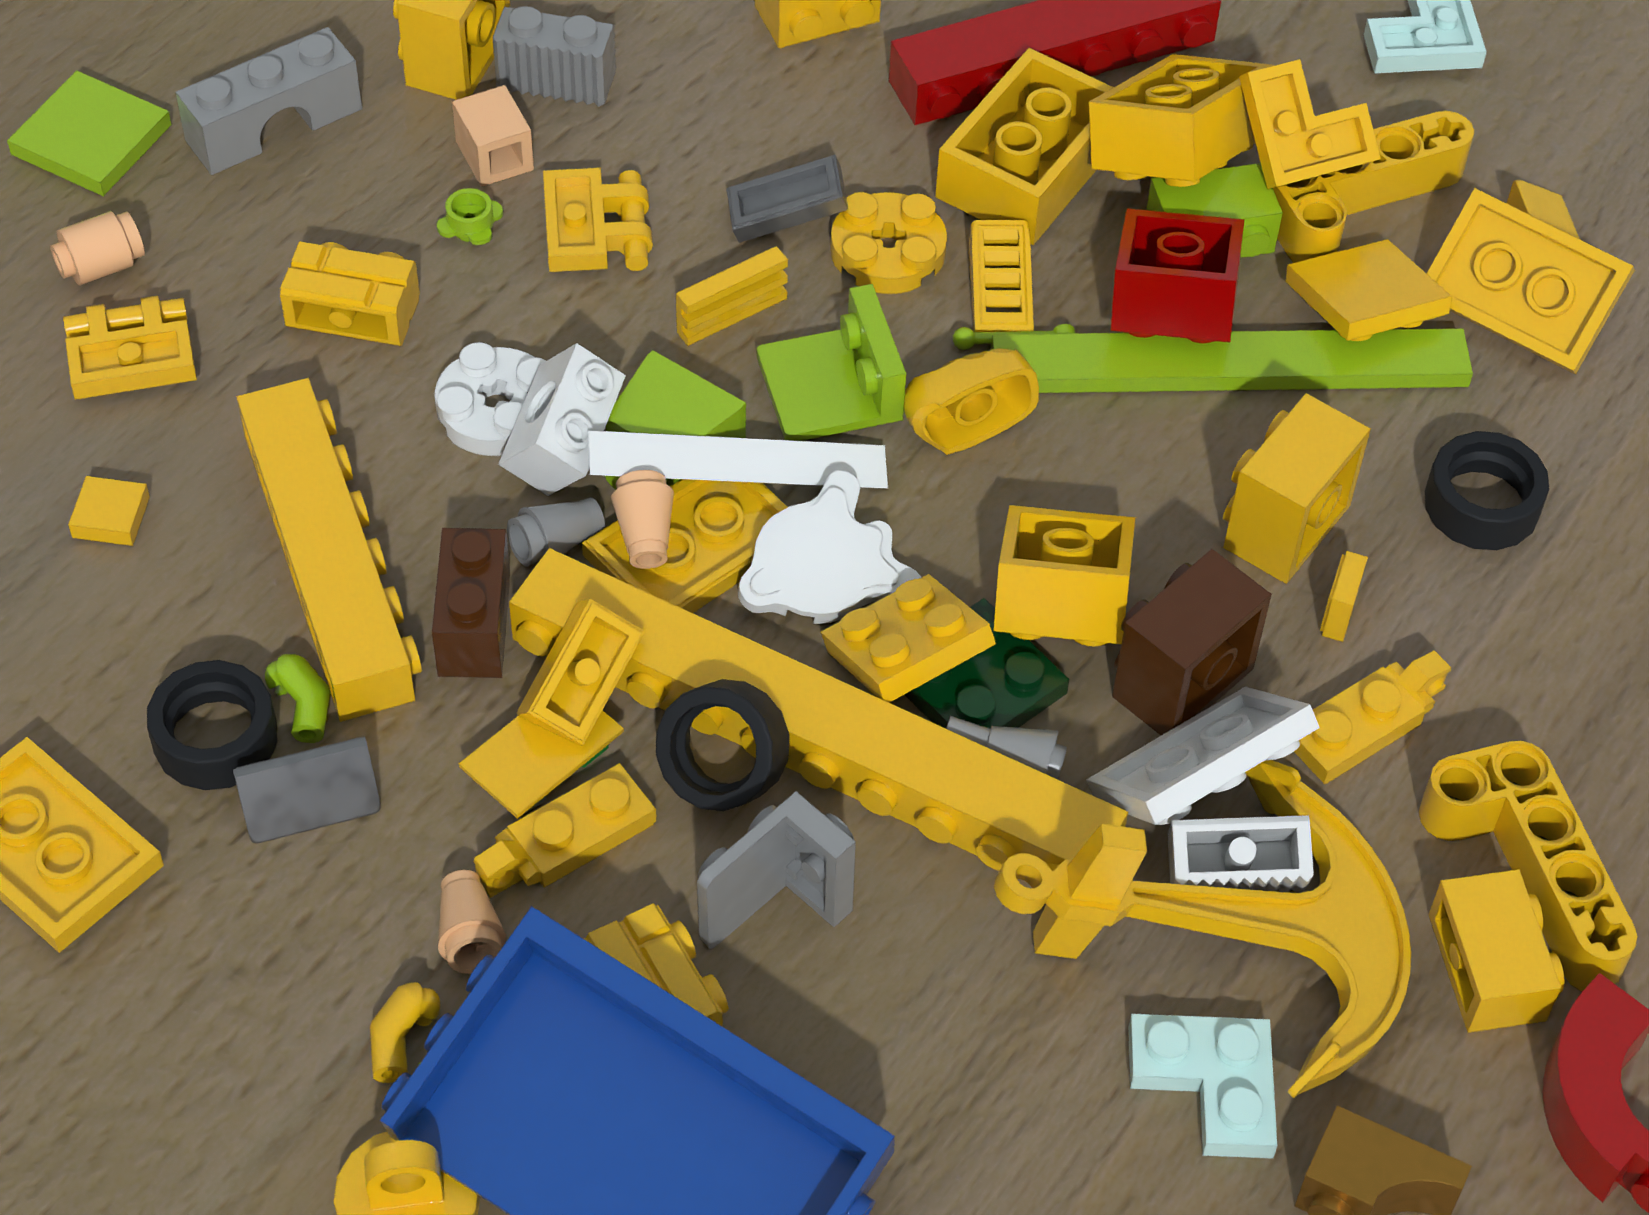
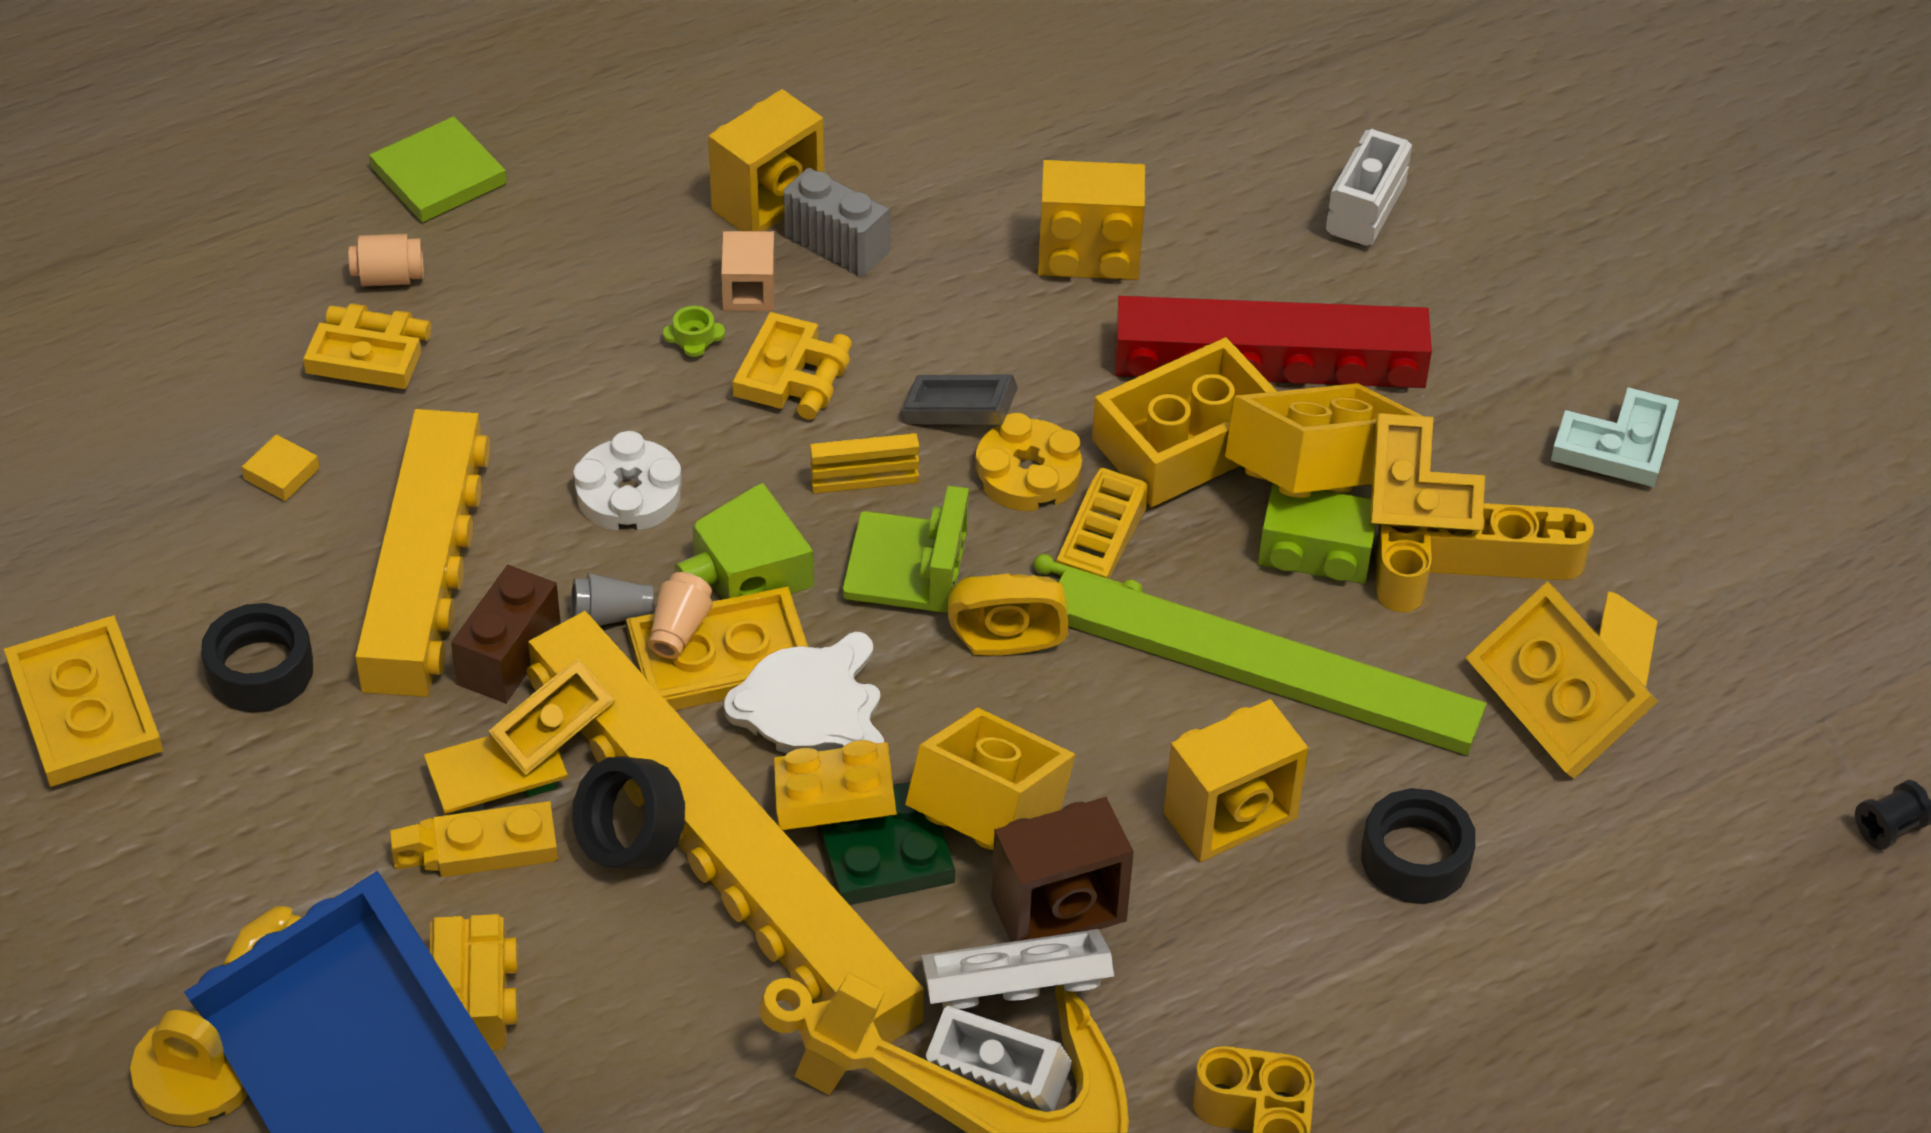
camera: 25 degrees right, 5 degrees down
(228, 110) = (551, 180): light grey arch -> none
(296, 677) = (342, 648): lime arm -> none
(307, 790) = (299, 732): flat silver slope -> none
(350, 292) = (560, 359): yellow brick -> none
(467, 922) = (364, 859): light nougat cone -> none
(551, 432) = (659, 514): white brick -> none
(734, 458) = (783, 594): white sticker -> none
(782, 848) = (601, 919): light grey bracket -> none
(1026, 745) = (881, 911): light grey cone -> none
(1177, 275) = (1243, 569): red brick -> none
(1343, 596) = (1232, 886): yellow tile -> none
(1368, 290) = (1415, 640): yellow tile -> none
(1371, 715) = (1196, 994): yellow hinge -> none

